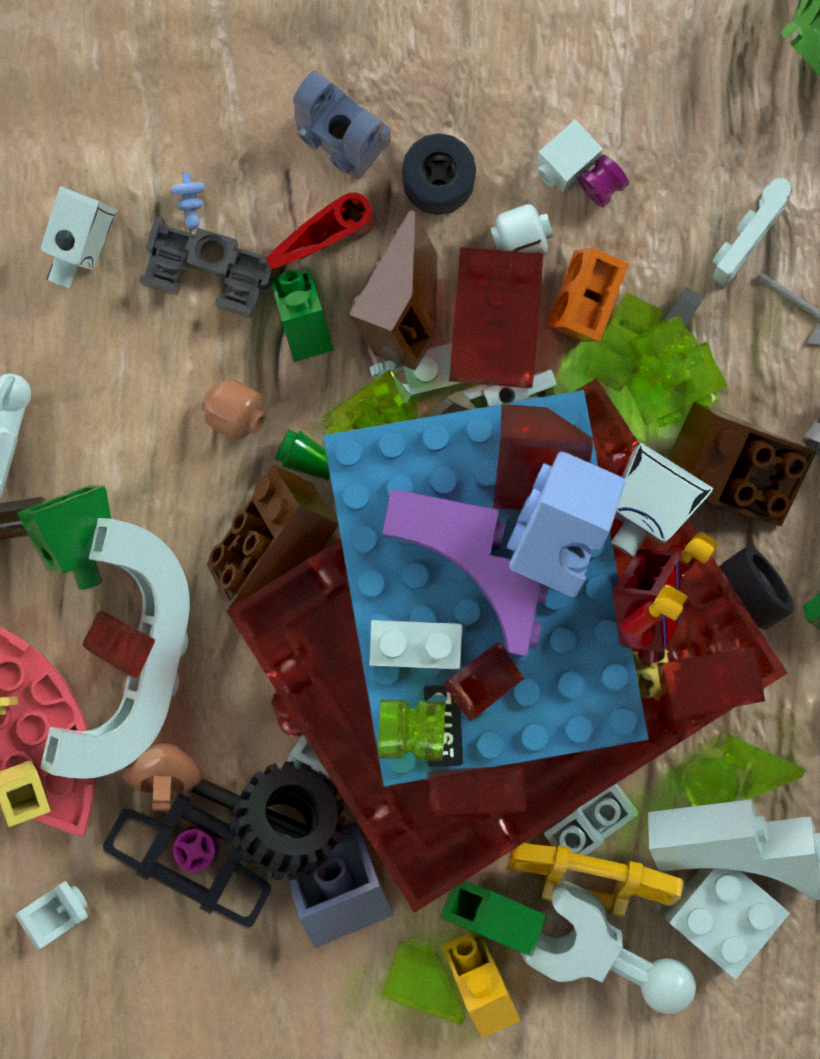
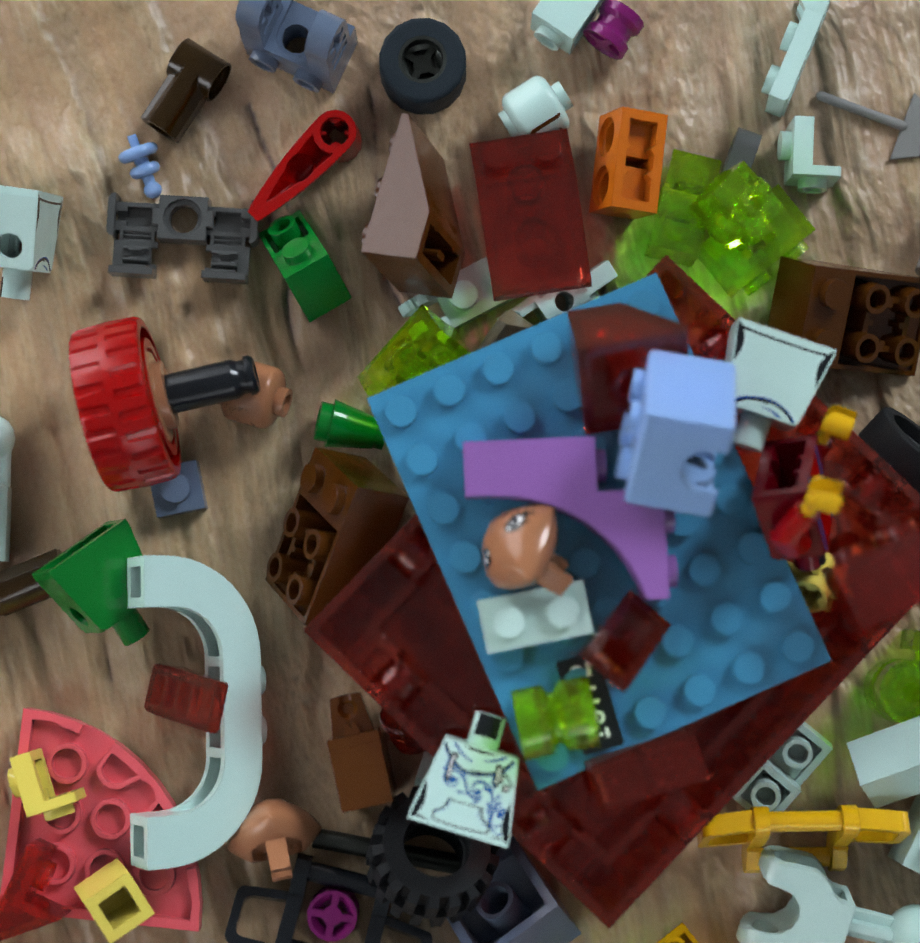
camera: 10 degrees left, 0 degrees up
(133, 392) = (133, 404): none -> red wheel
(153, 472) = (180, 494): none -> sand blue plate
(247, 724) = (359, 755): none -> reddish brown hinge
(248, 138) = (191, 79): none -> dark brown piece
(330, 767) = (470, 784): none -> light aqua torso
(417, 588) = (521, 550): none -> nougat piece
(494, 917) = (699, 908): green slope -> none
(729, 316) = (796, 149): none -> light aqua bracket

